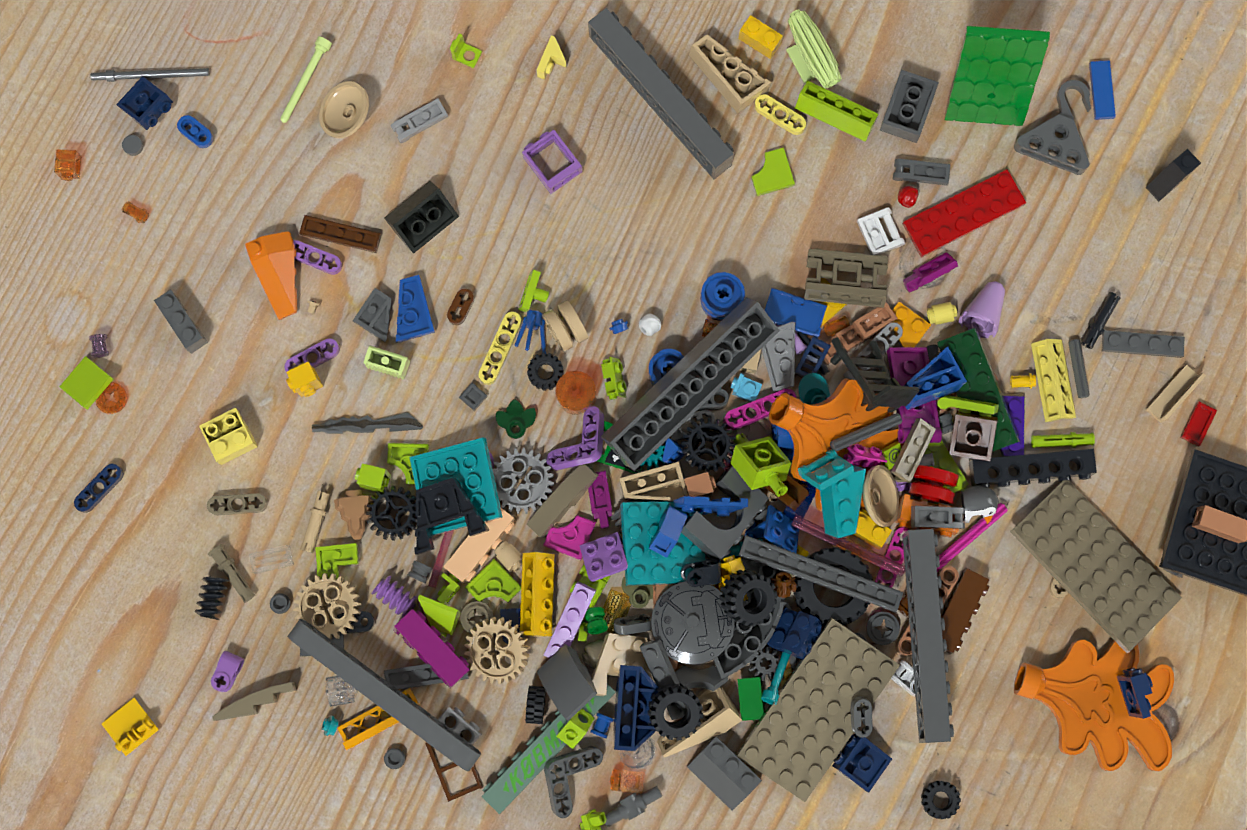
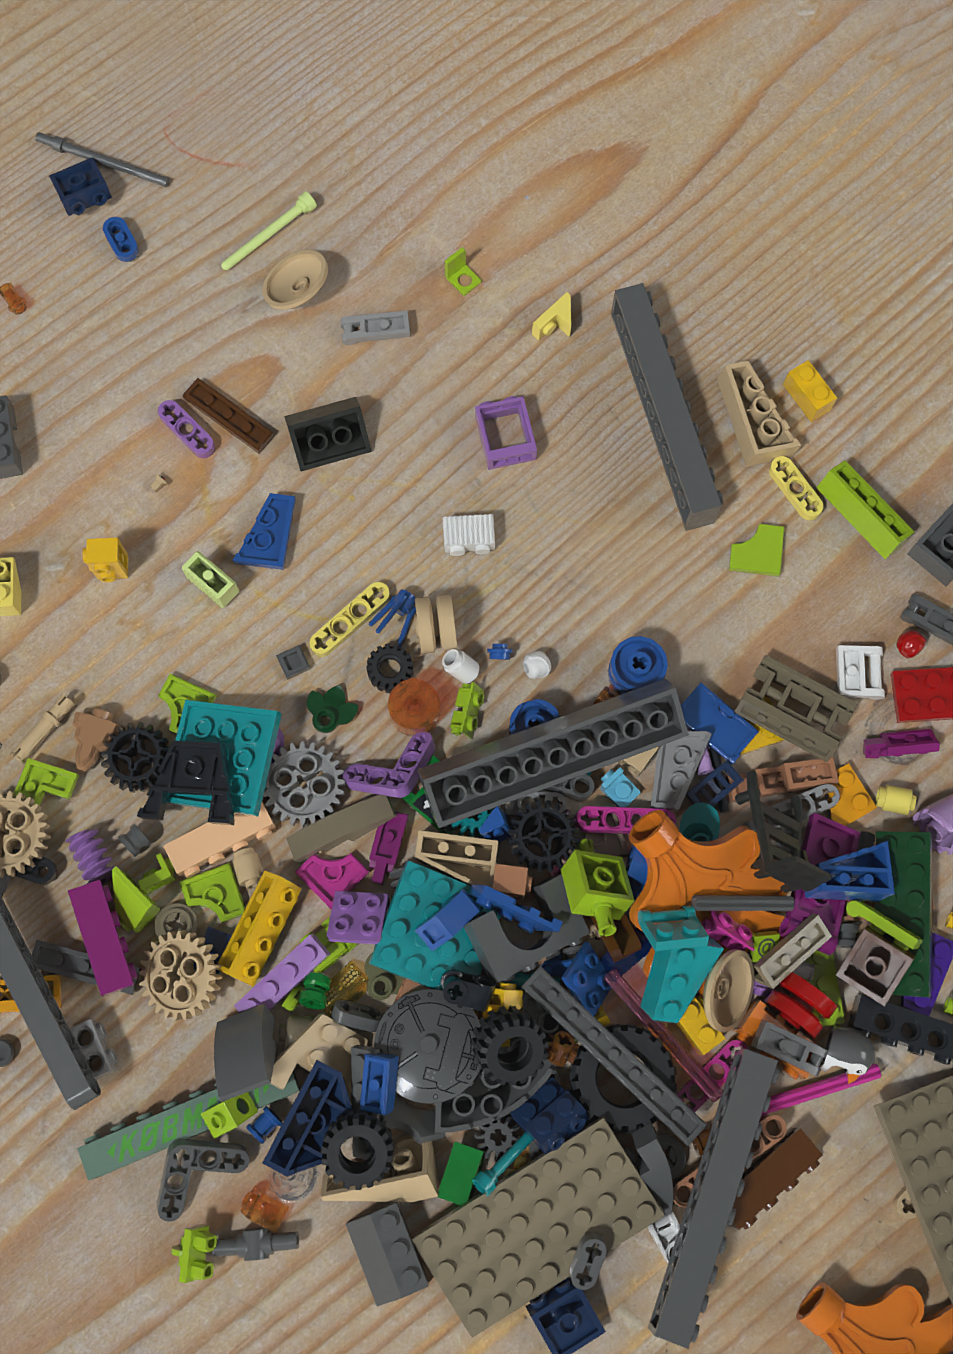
camera: 20 degrees right, 5 degrees down
(132, 145) = (46, 226): dark grey tile -> none
(274, 265) = (135, 417): orange wedge -> none
(314, 349) = (148, 531): medium lavender beam -> none
(372, 478) = (130, 705): lime brick -> none
(375, 314) = (224, 521): dark grey wing -> none
(398, 422) = (155, 641): dark grey sword -> none
(439, 772) = (43, 1110): reddish brown window -> none
(440, 559) = (166, 836): clear pink bar -> none
(456, 304) = (322, 549): reddish brown beam -> none
(532, 292) = (416, 570): lime tile -> none
(535, 705) = (194, 1063): black tyre -> none
(558, 249) = (469, 534): none -> white brick
(596, 348) = (460, 666): none -> white brick
(670, 662) = (379, 1083): none -> blue slope
(811, 53) = (863, 434): yellowish green plate -> none
(836, 326) = (759, 760): clear orange pin -> none
(879, 635) = (654, 1166): none -> dark grey slope

